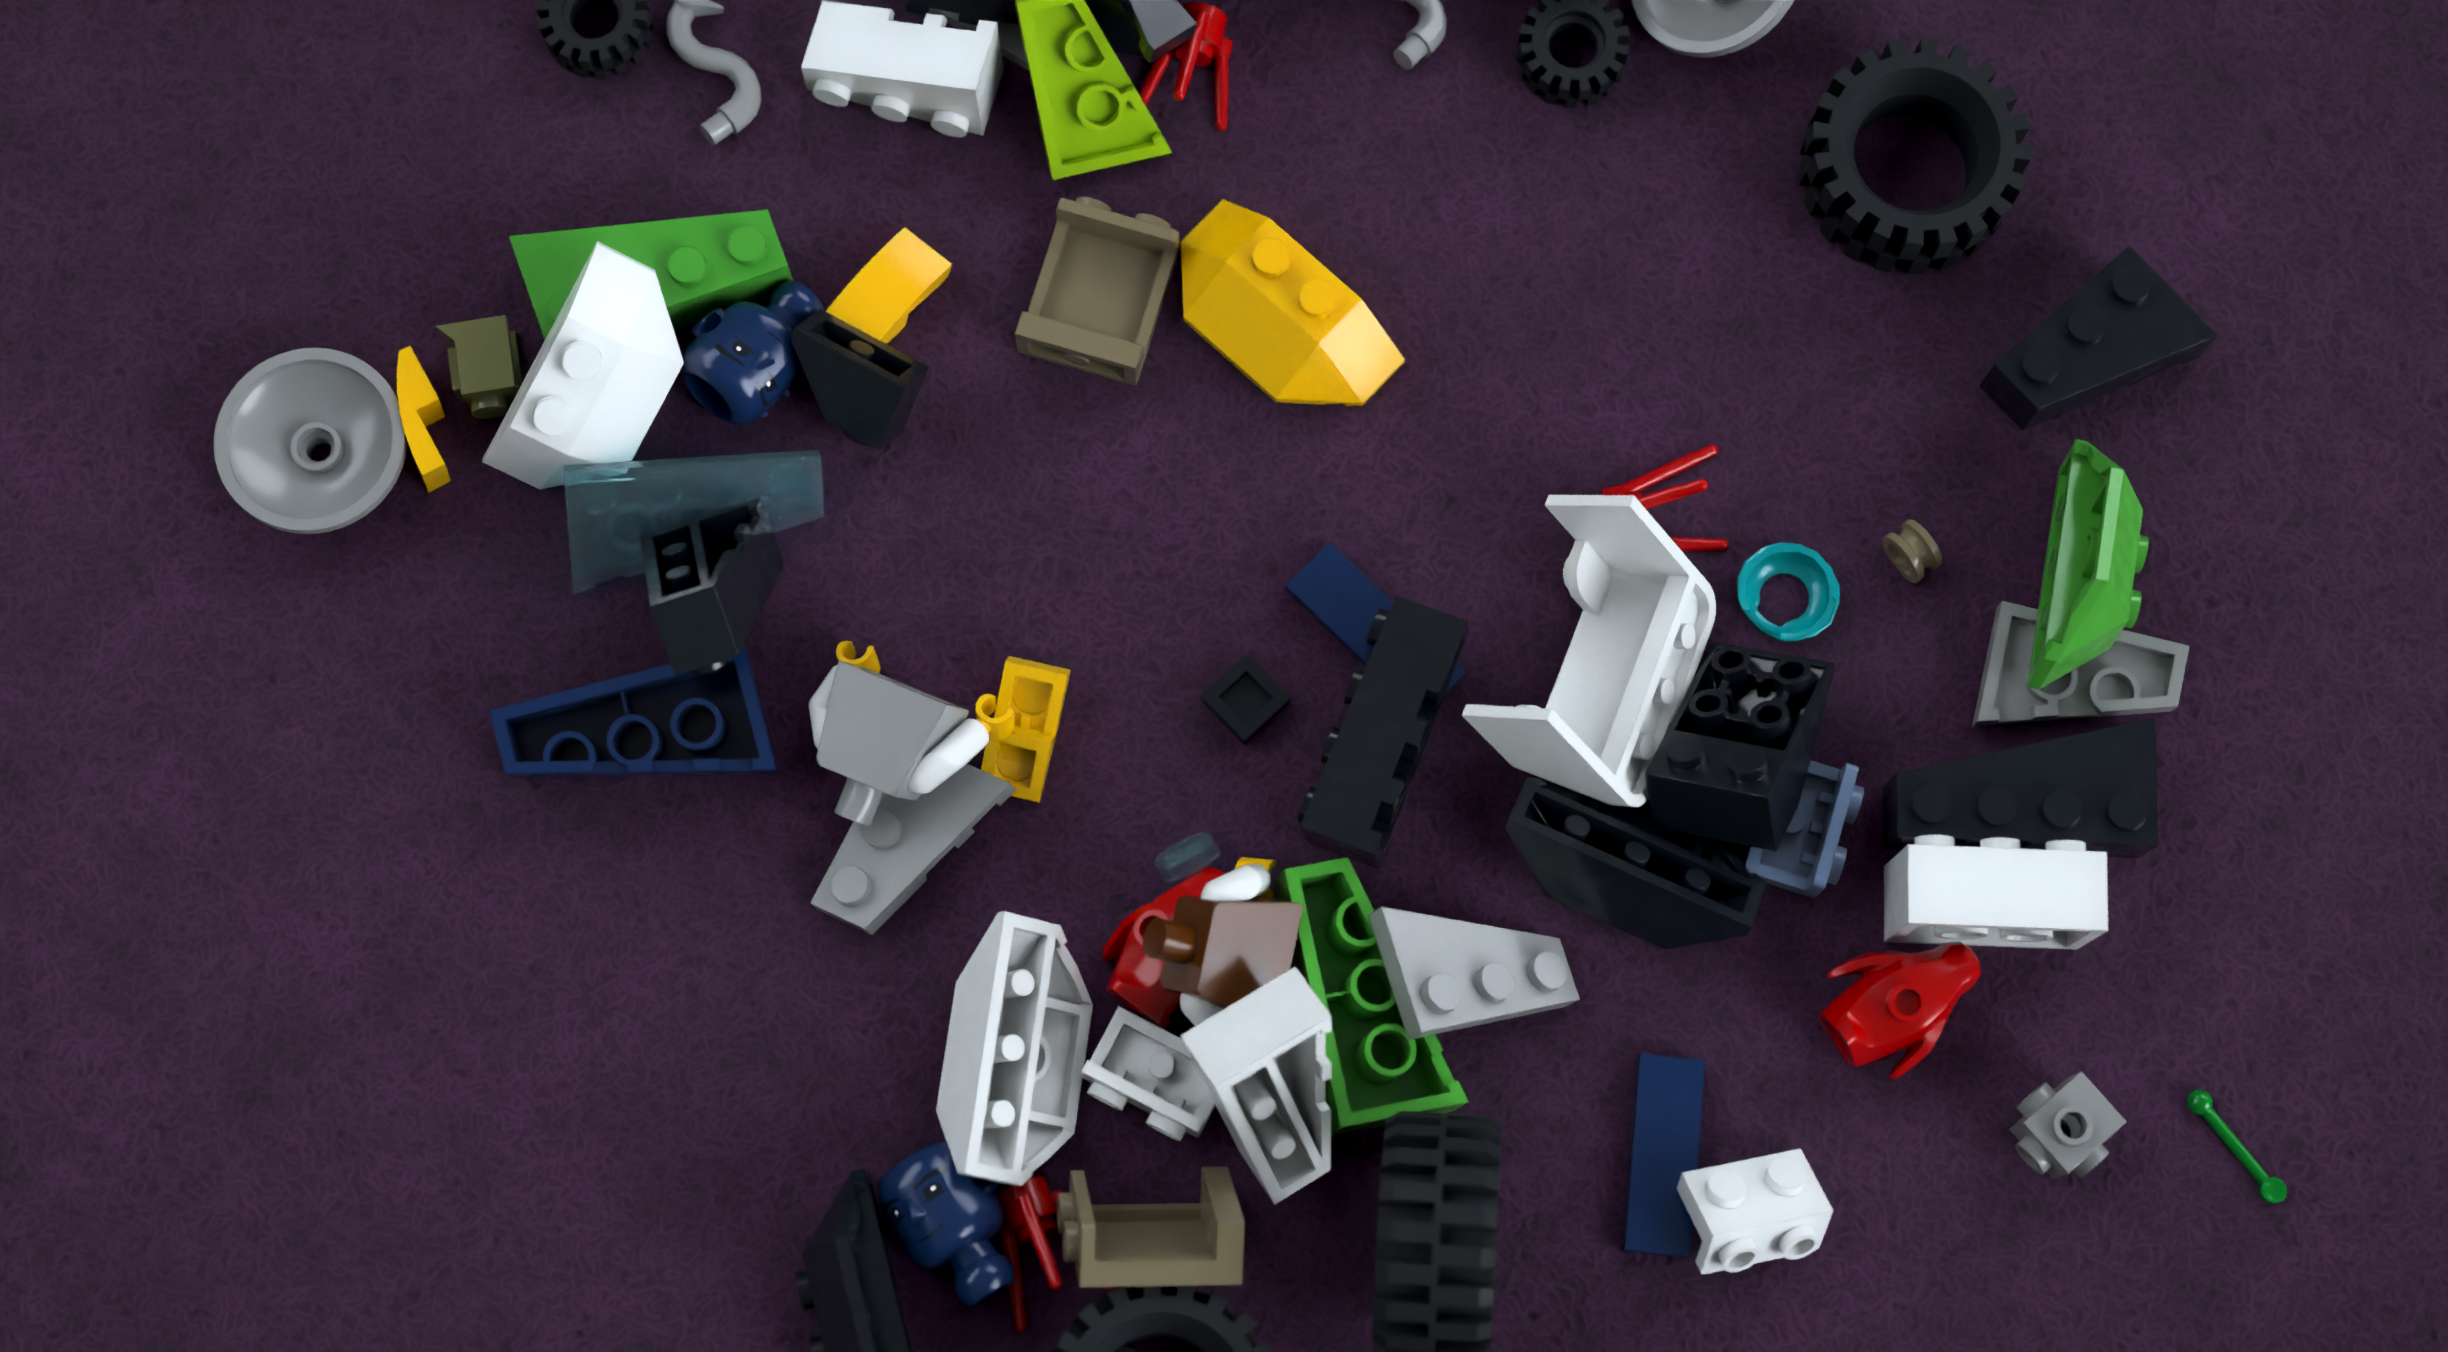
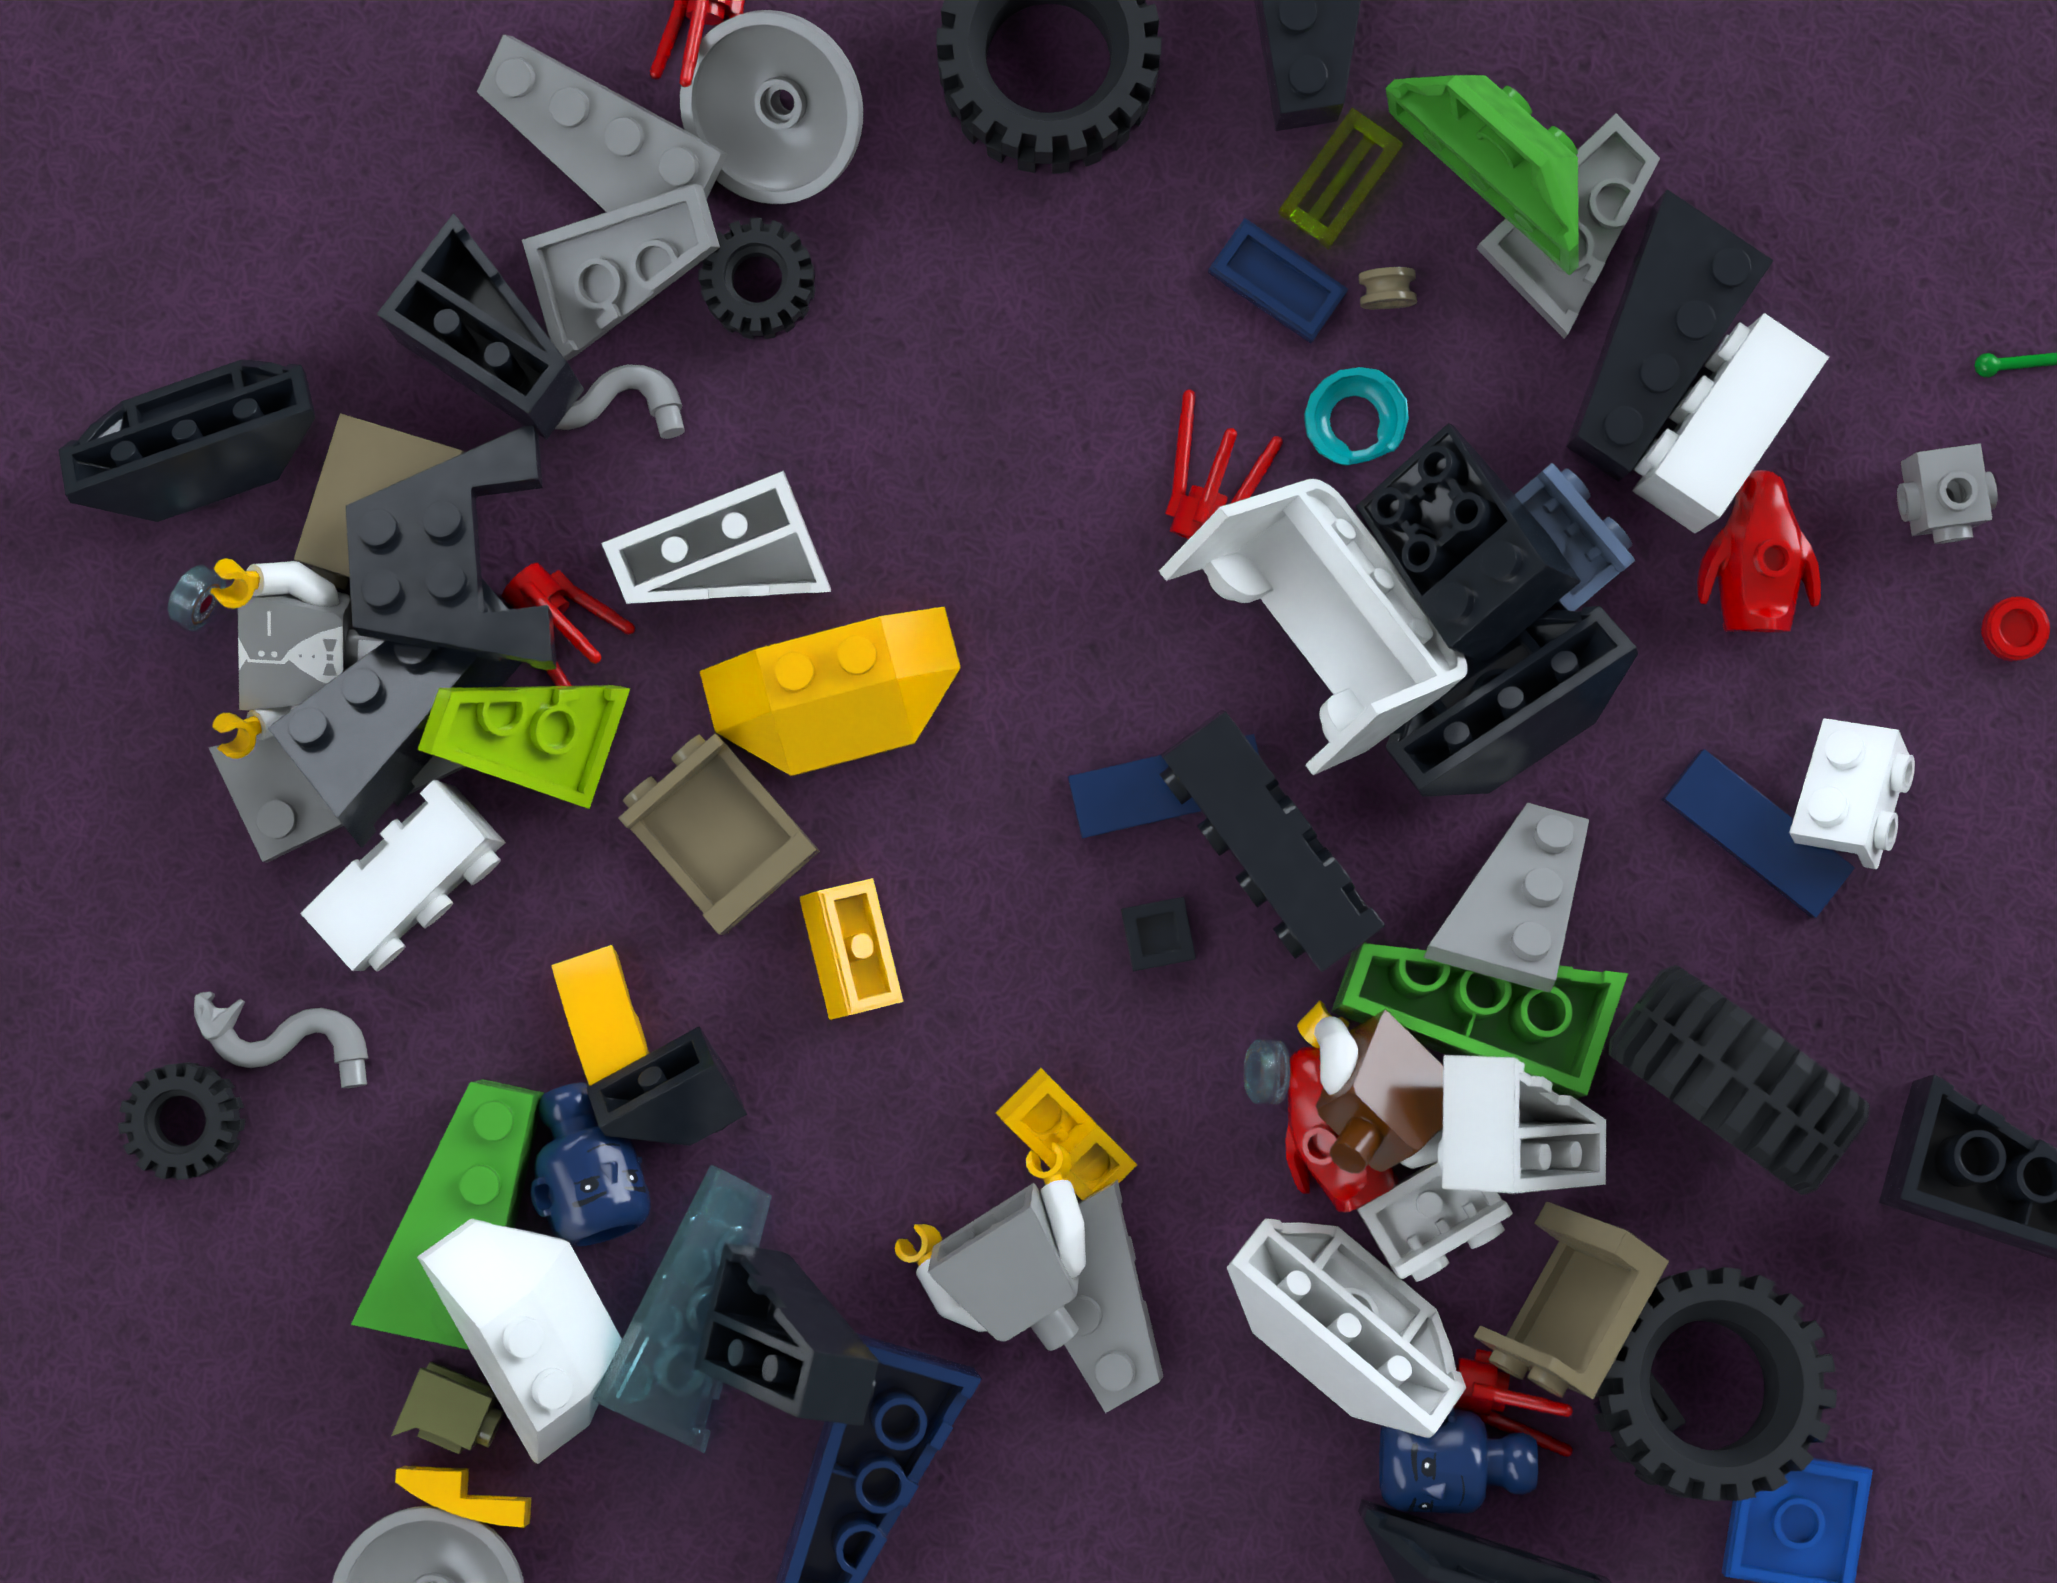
camera: 55 degrees left, 10 degrees up
(1072, 458) = (851, 948): none -> yellow slope
(1335, 146) = (721, 548): none -> white wedge
(1857, 461) = (1277, 280): none -> dark blue tile
(1991, 1271) = (2015, 628): none -> red tile
(2031, 464) = (1309, 221): none -> clear neon green tile

